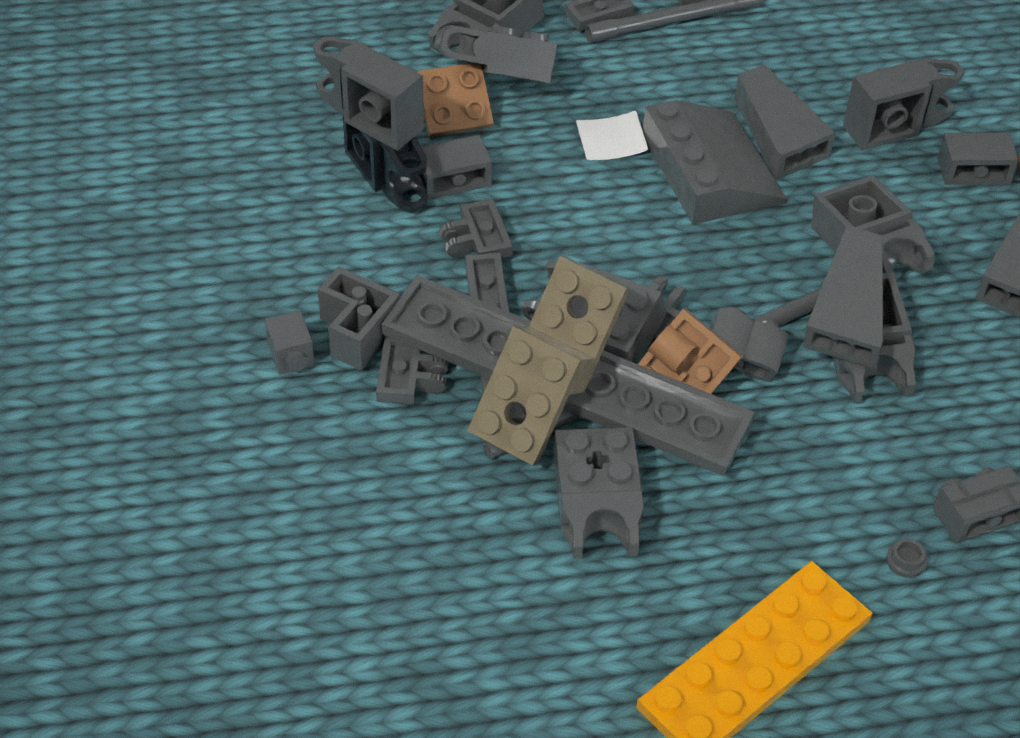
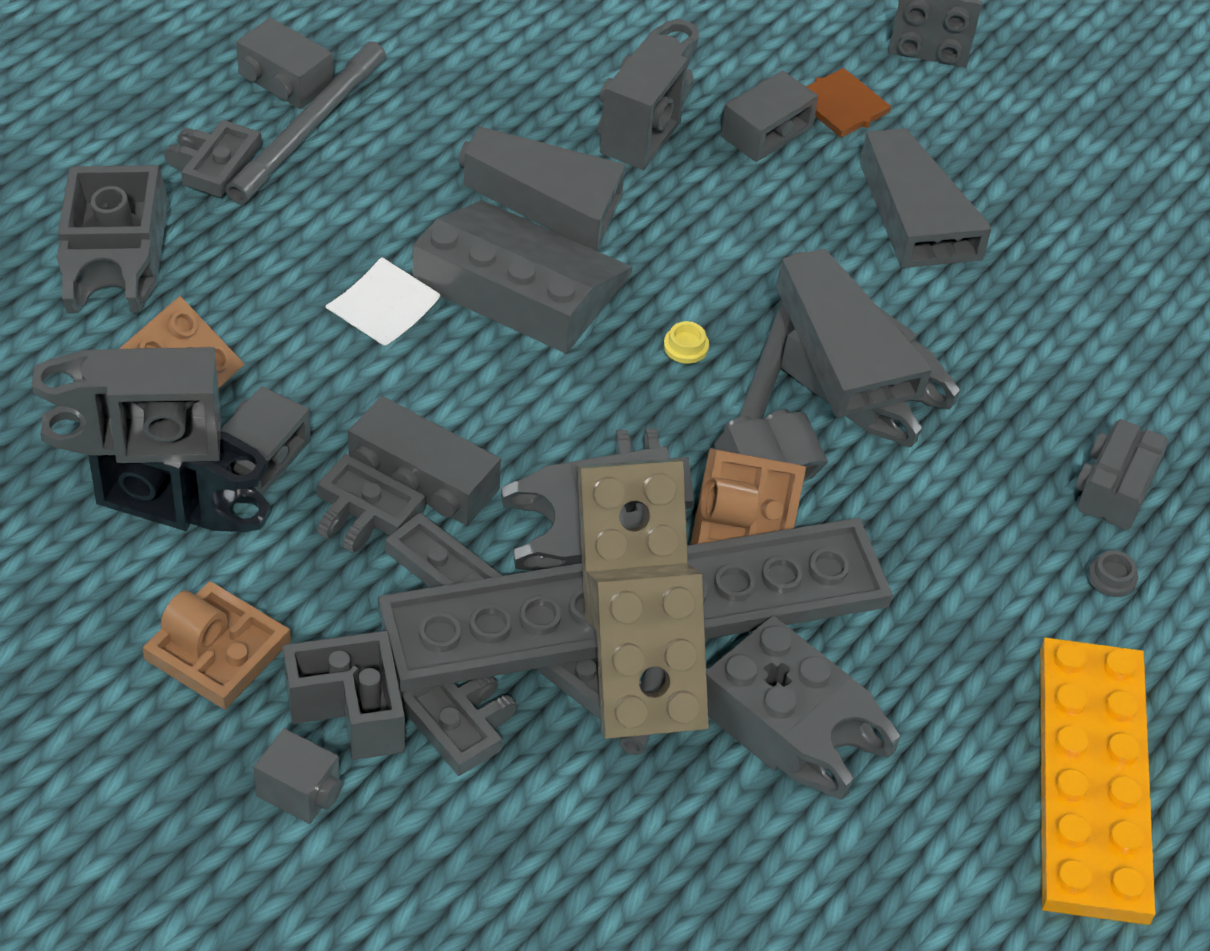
camera: 45 degrees left, 0 degrees up
(320, 248) = (215, 643): none -> medium nougat plate
(502, 51) = (194, 268): dark grey brick -> none
(532, 226) = (427, 458): none -> dark grey brick
(769, 258) = (686, 343): none -> light yellow plate
(874, 208) = (743, 241): dark grey brick -> none

